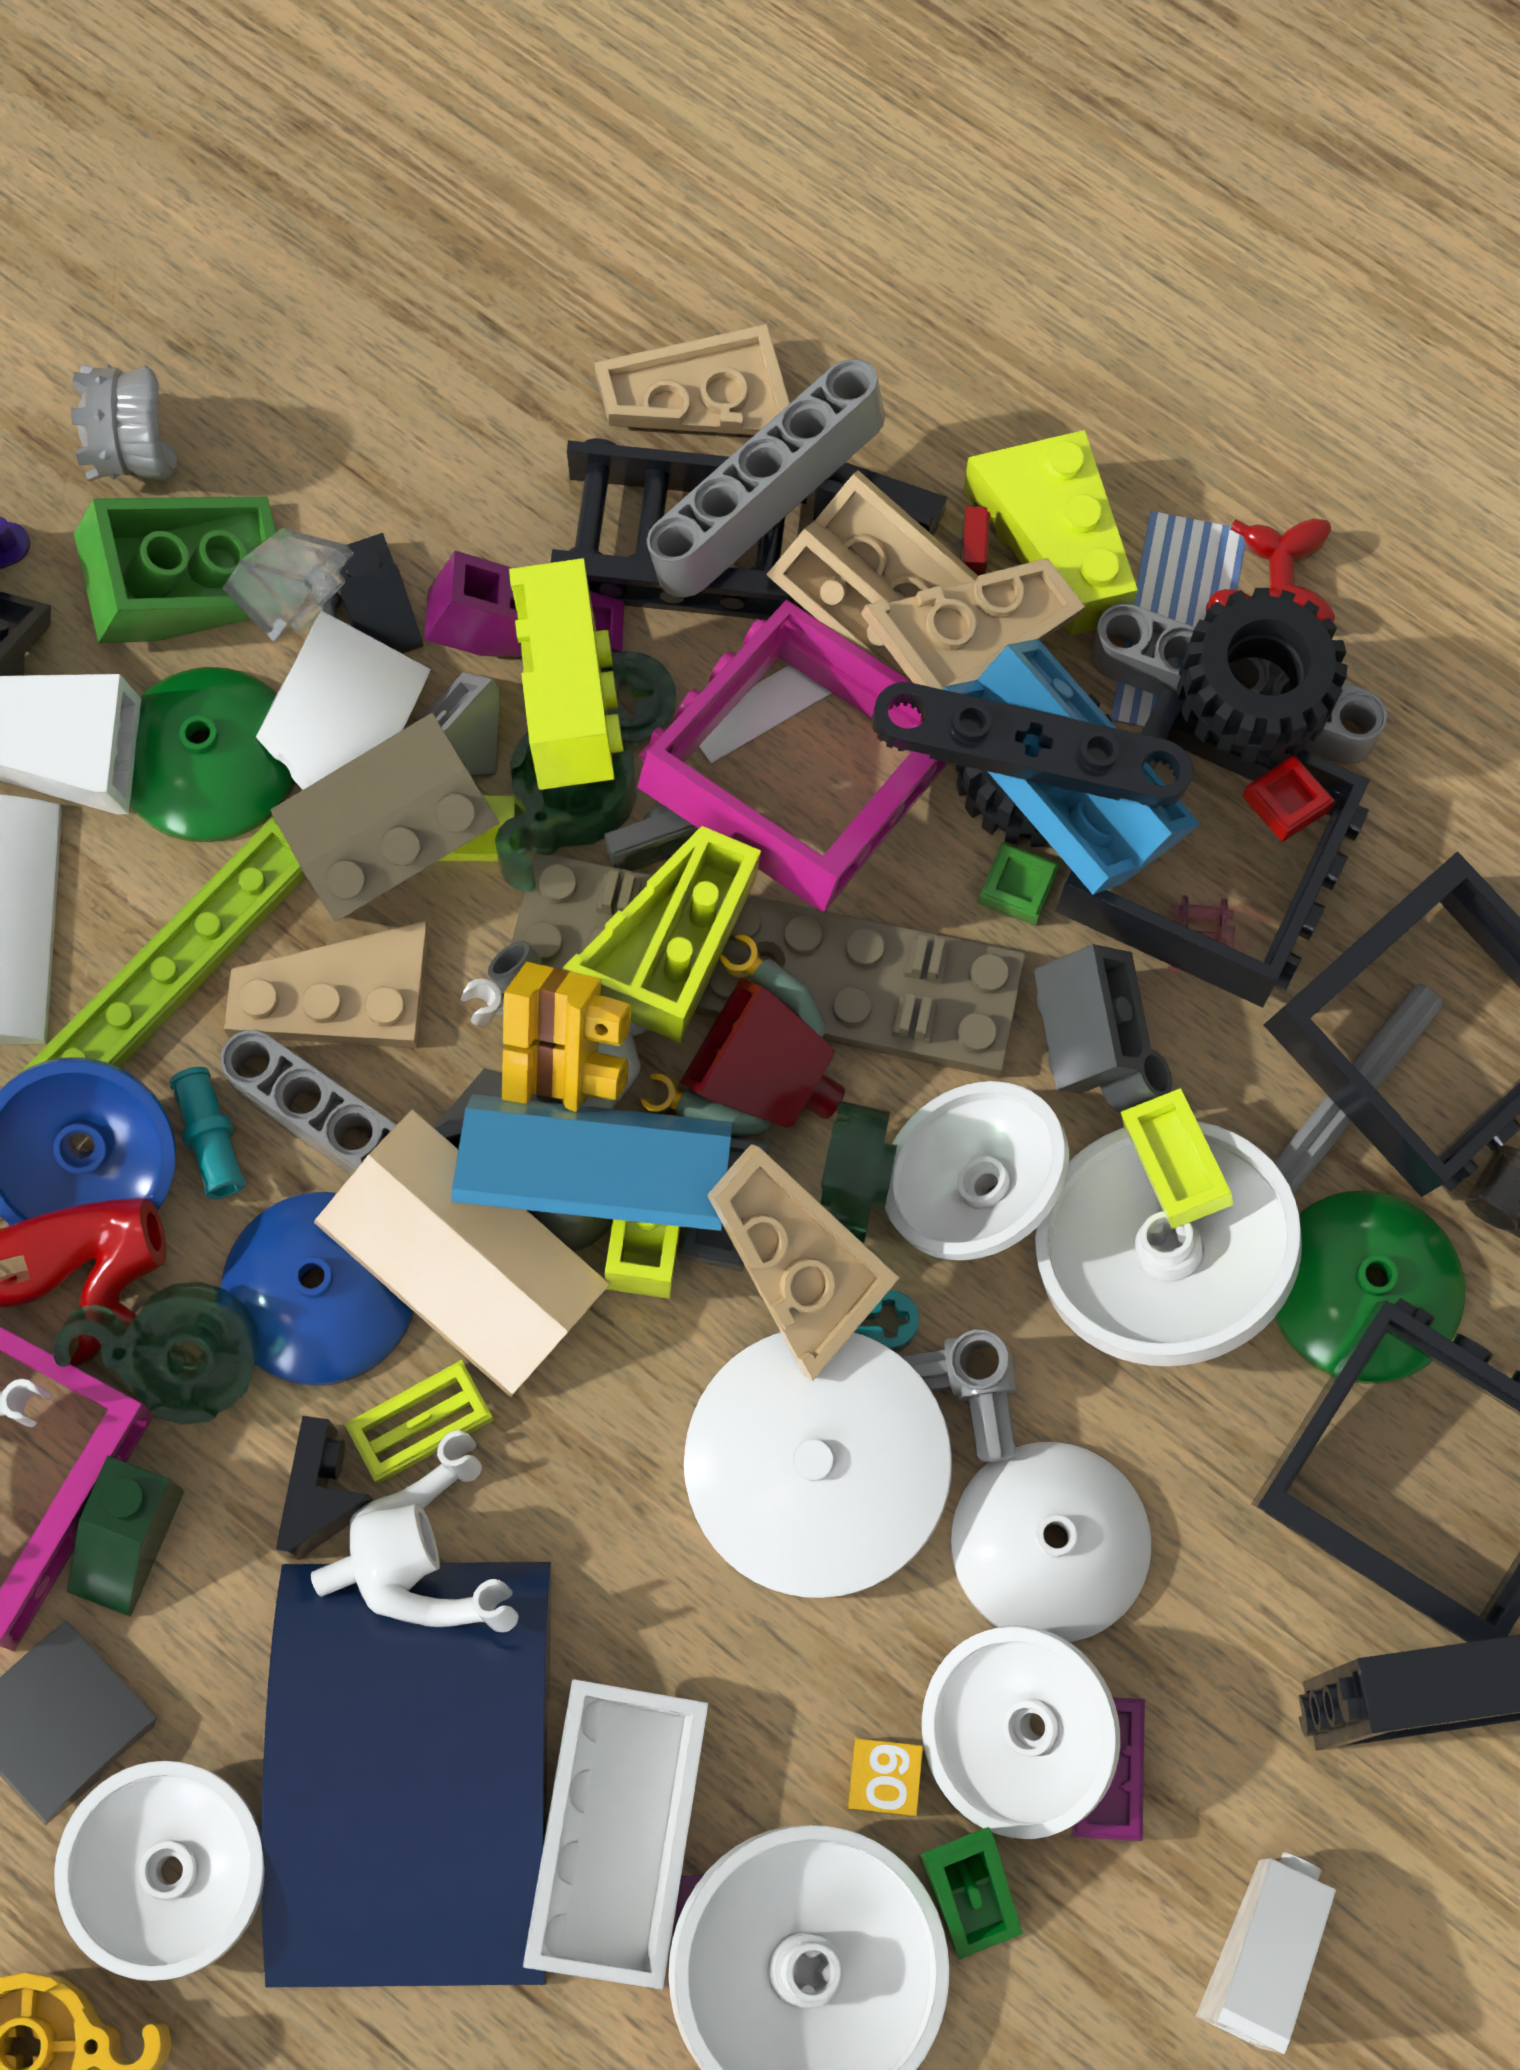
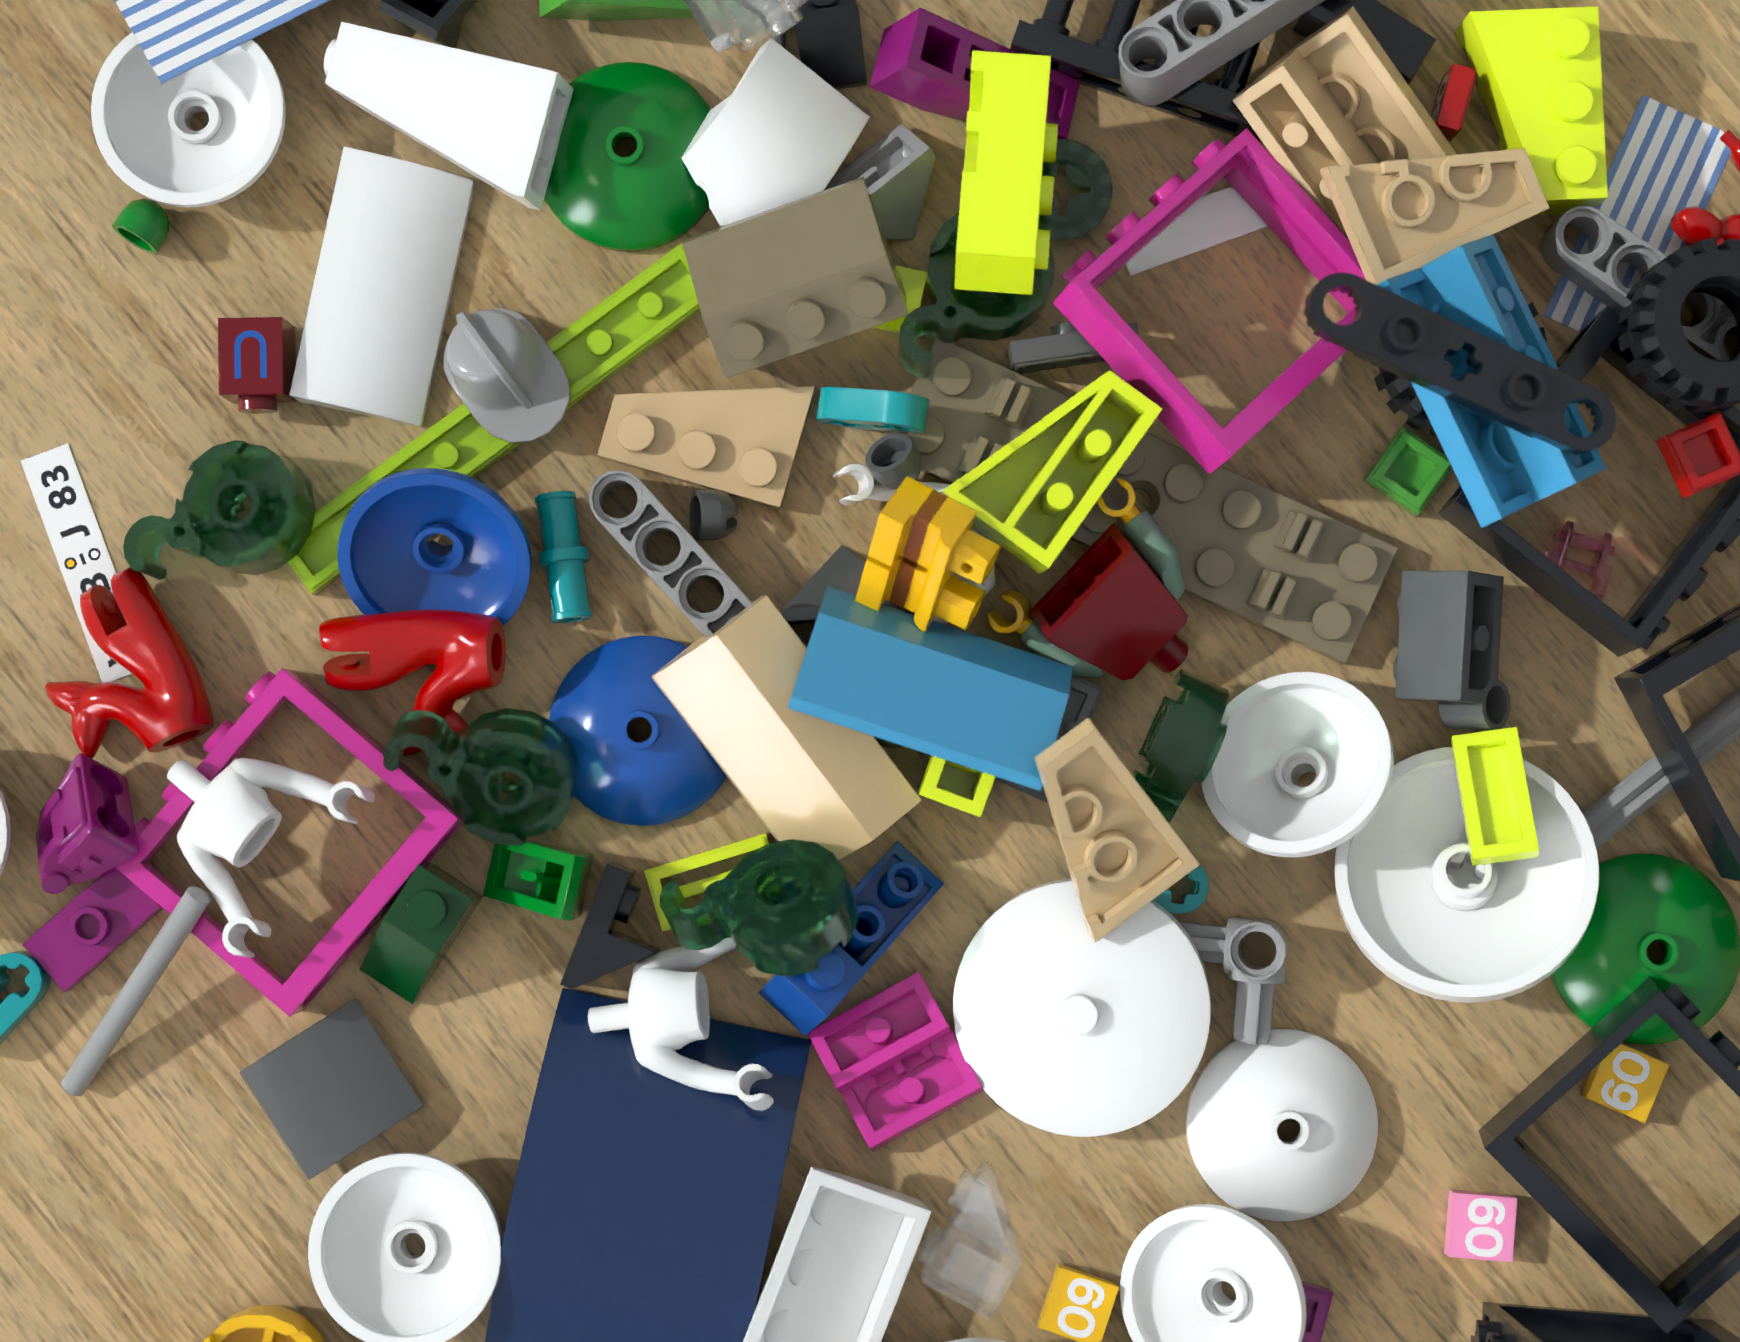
camera: 15 degrees right, 15 degrees up
(119, 970) = (506, 375): none -> light grey piece
(239, 1451) = (539, 878): none -> green slope
(345, 1061) = (712, 514): none -> dark grey hinge
(476, 1421) = (776, 905): none -> clear green piece
(485, 926) = (872, 409): none -> teal beam
(566, 1448) = (885, 906): none -> blue slope
(641, 1563) = (895, 1061): none -> dark pink slope
(766, 1735) = (977, 1249): none -> clear slope
(1278, 1599) = (1480, 1225): none -> bright pink tile
(1383, 1418) = (1626, 1082): none -> yellow tile

